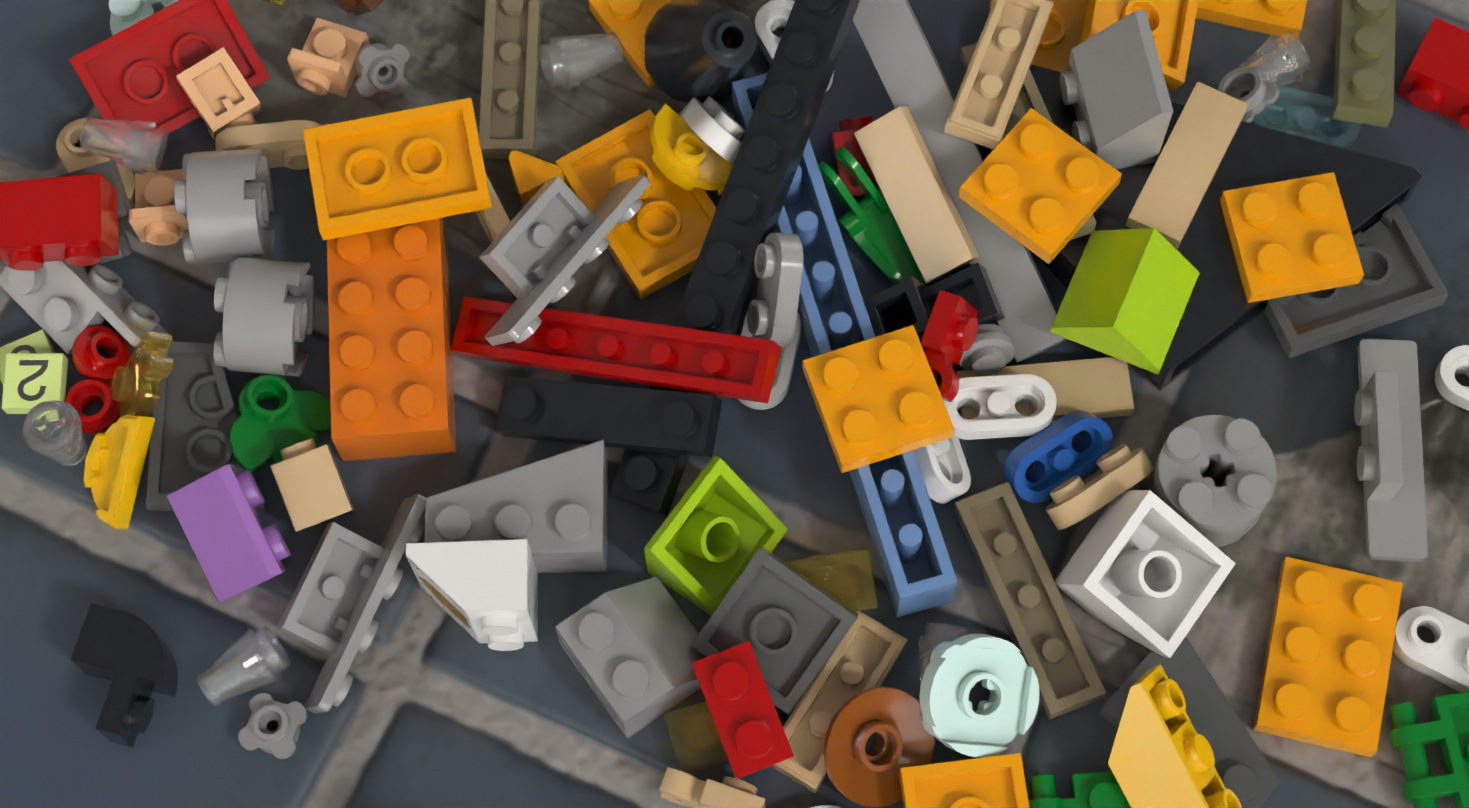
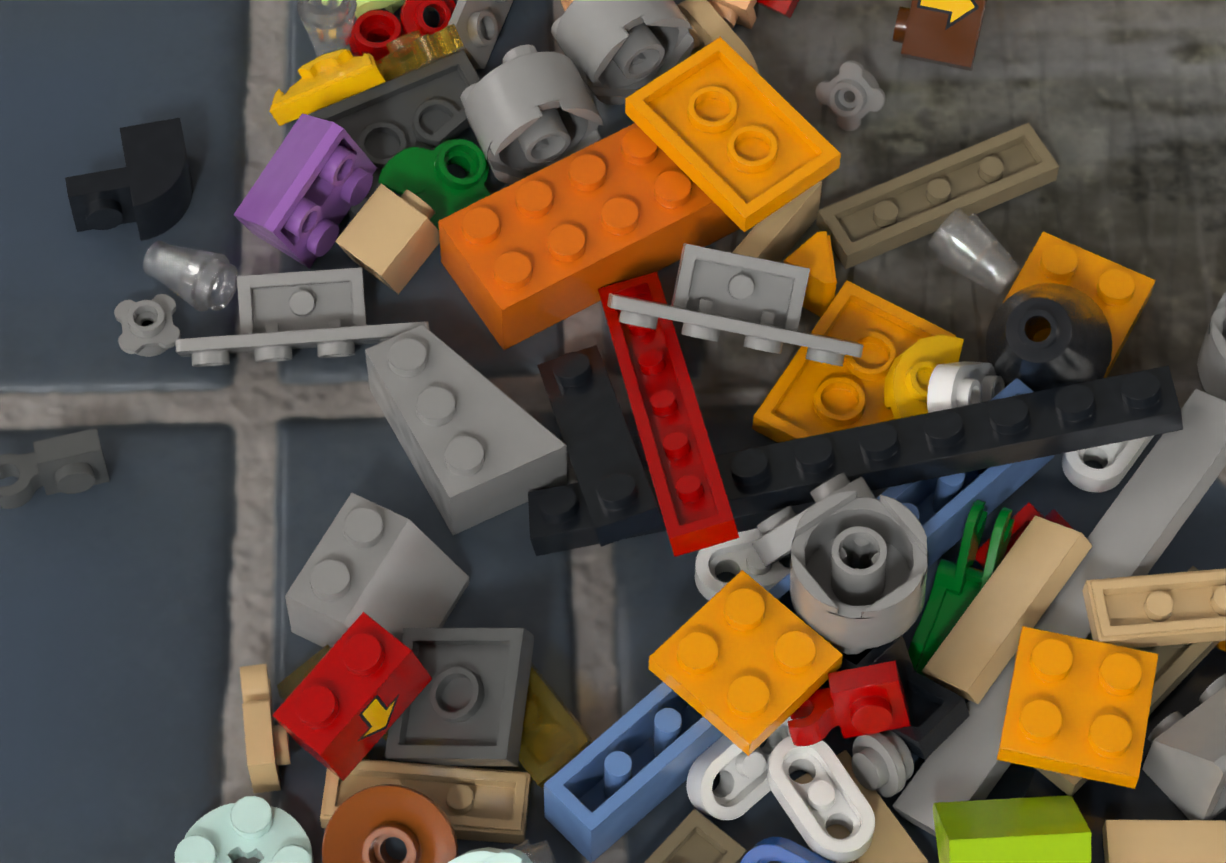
camera: 60 degrees right, 10 degrees down
(327, 58) = (829, 46): light nougat bracket -> none
(483, 587) = (361, 420): white slope -> none
(711, 537) = (534, 586): lime slope -> none
(866, 243) = (858, 570): none -> light grey brick

